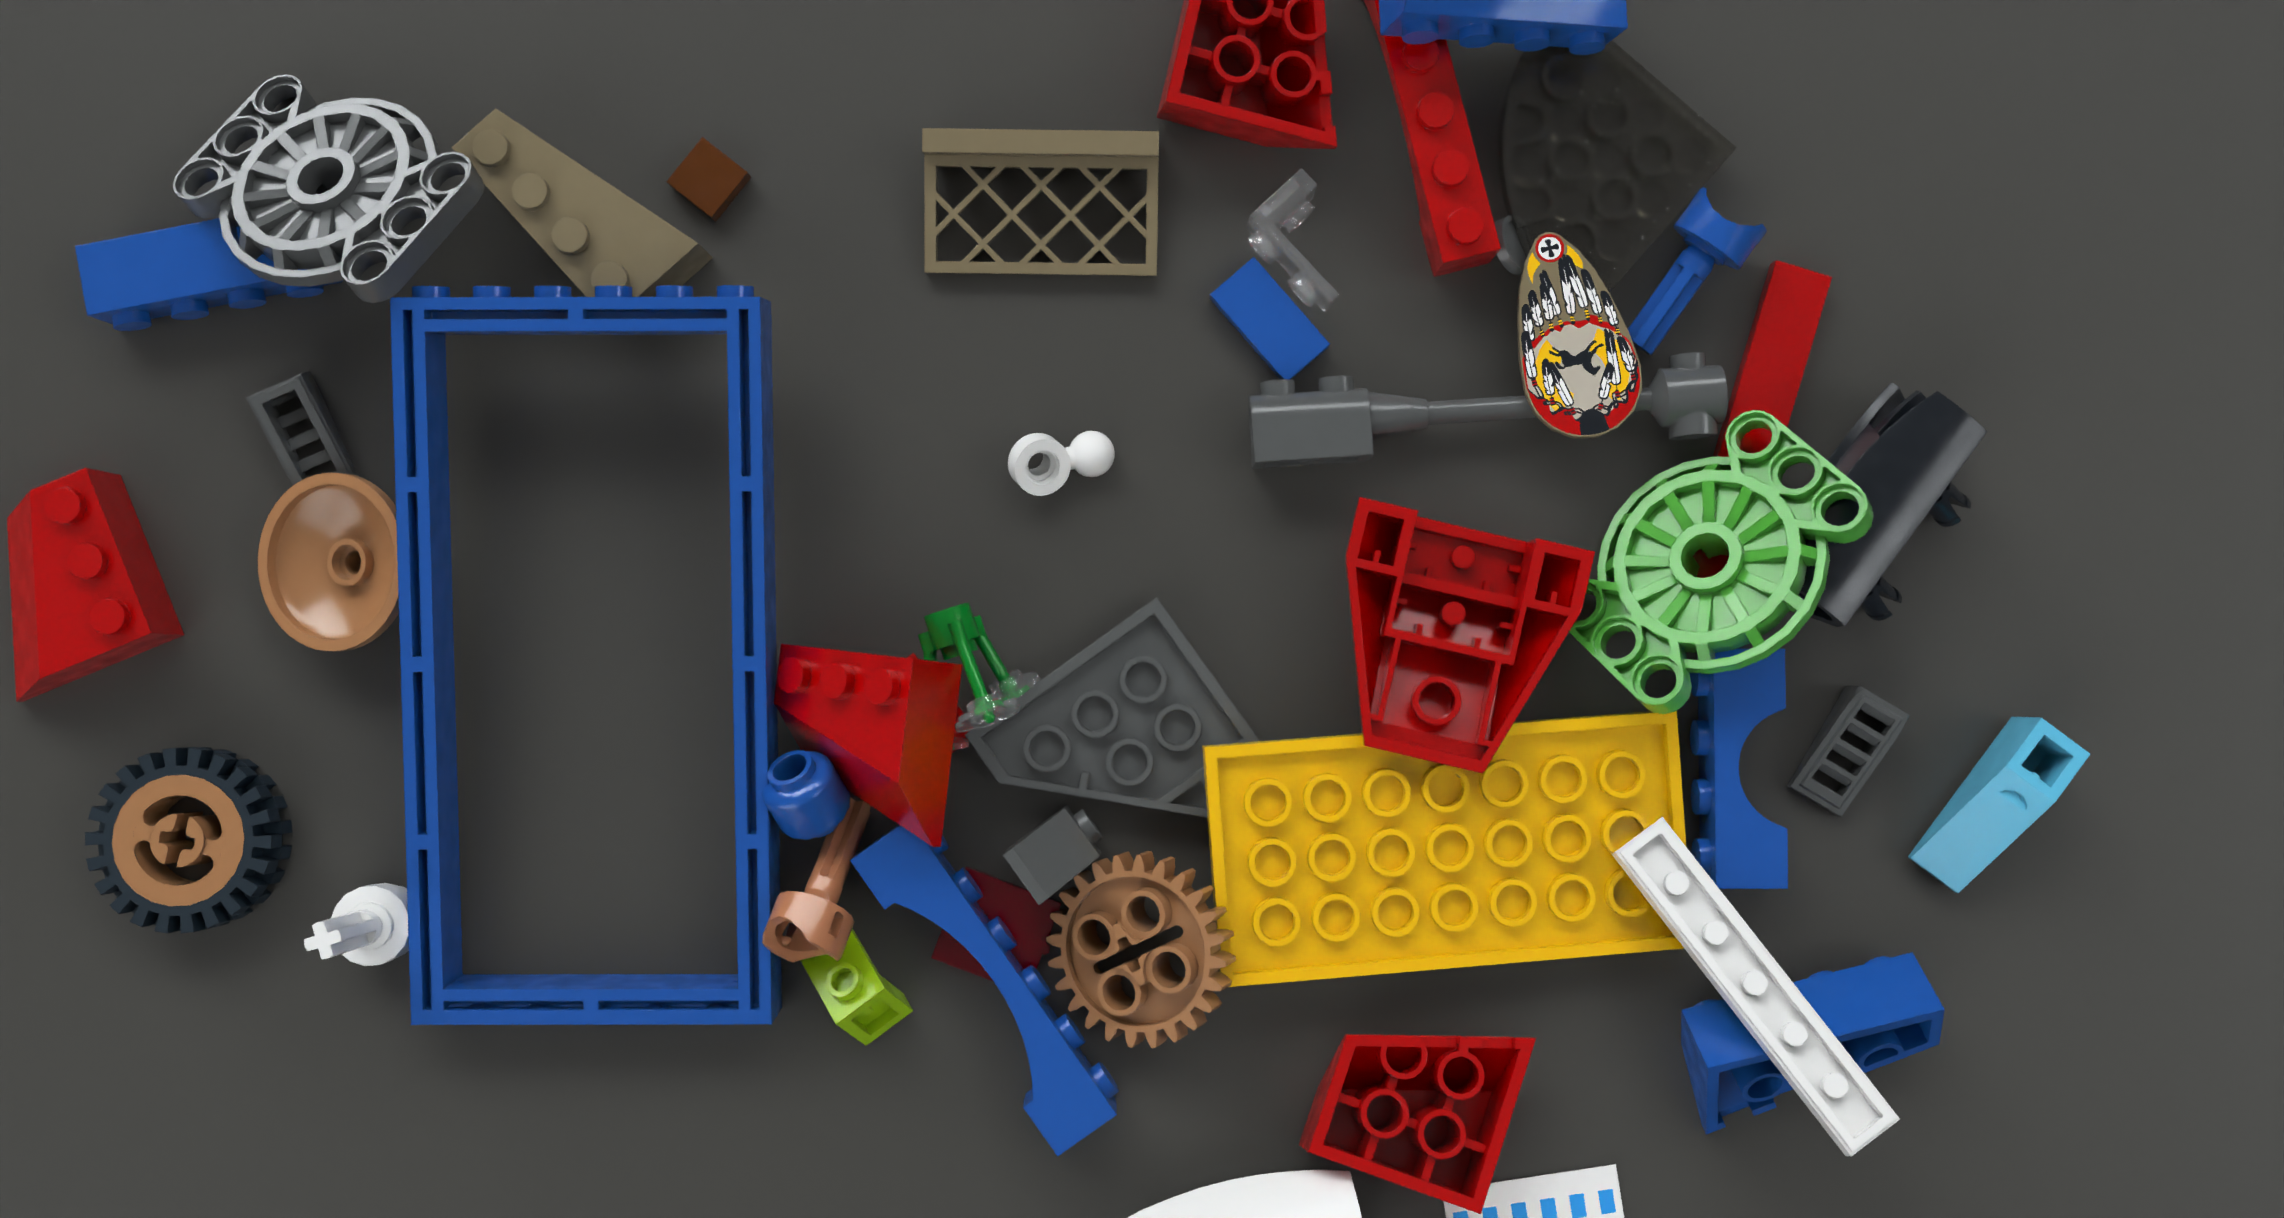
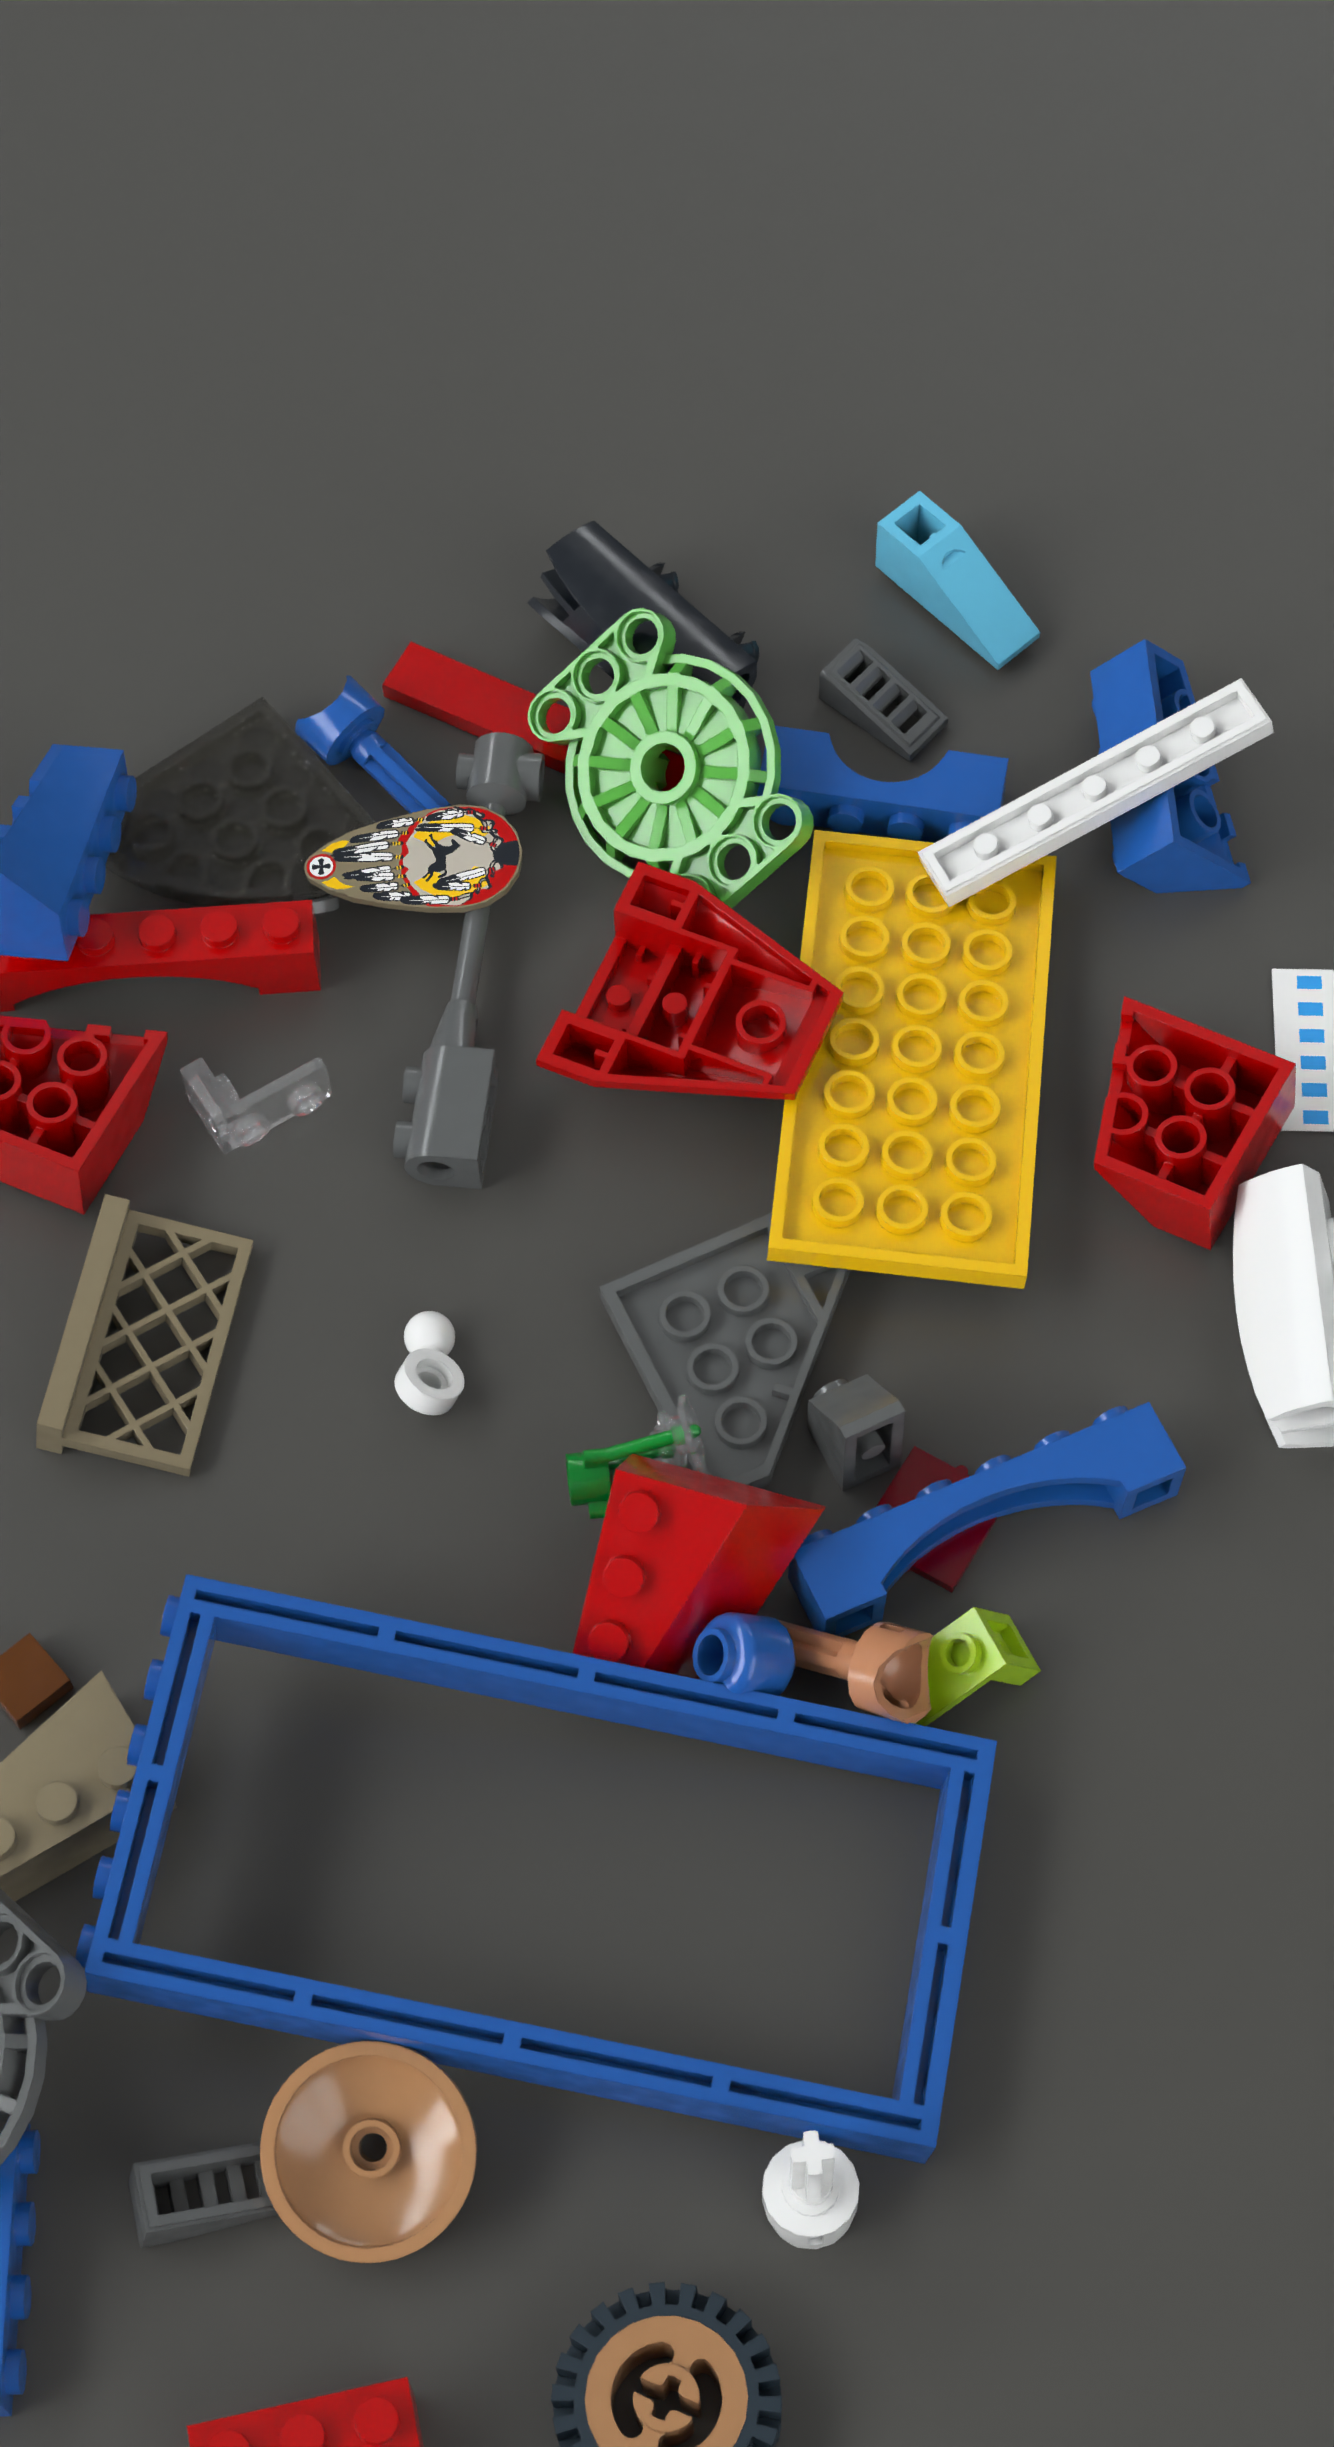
camera: 80 degrees left, 25 degrees down
(1163, 999) = (1032, 1339): medium nougat gear -> none
(1269, 320) = (328, 1143): blue tile -> none

